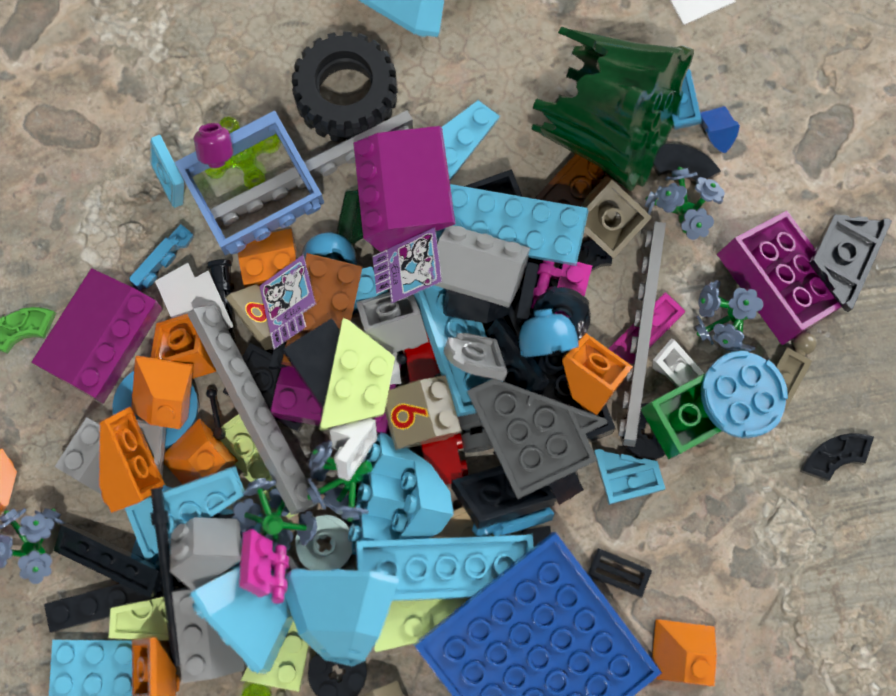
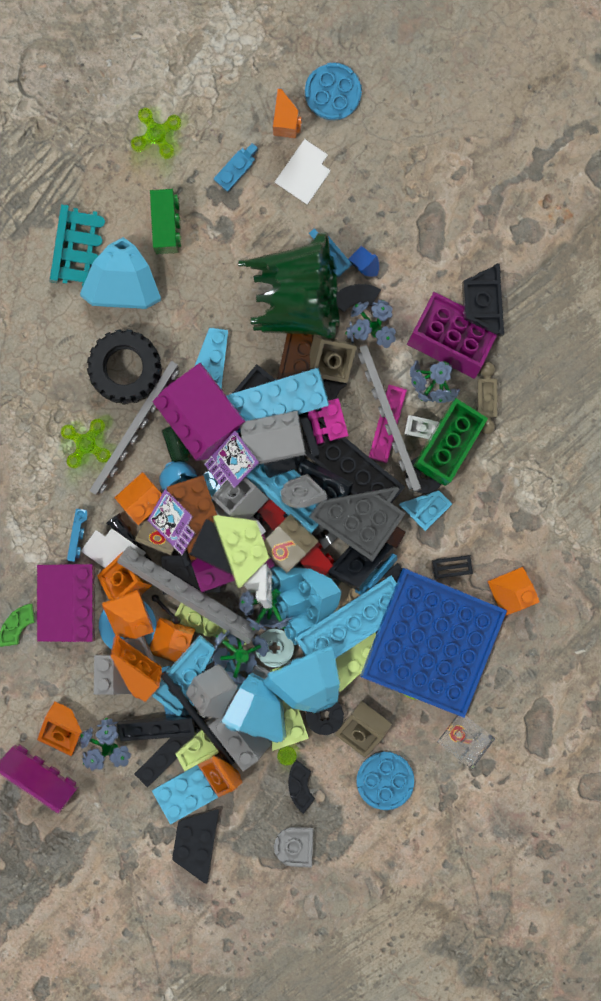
camera: 30 degrees left, 10 degrees up
(166, 171) = (48, 482): medium azure tile -> none
(213, 145) = (73, 454): magenta head -> none
(241, 140) = (79, 445): medium blue window -> none
(257, 563) = (248, 685): dark pink plate -> none
(547, 334) = (336, 458): dark azure cylinder -> none
(569, 301) = (331, 433): black plate -> none
(593, 373) = (375, 462): orange slope -> none
(744, 394) = (468, 425): dark azure tile -> none
(837, 452) = (539, 425): black tile -> none

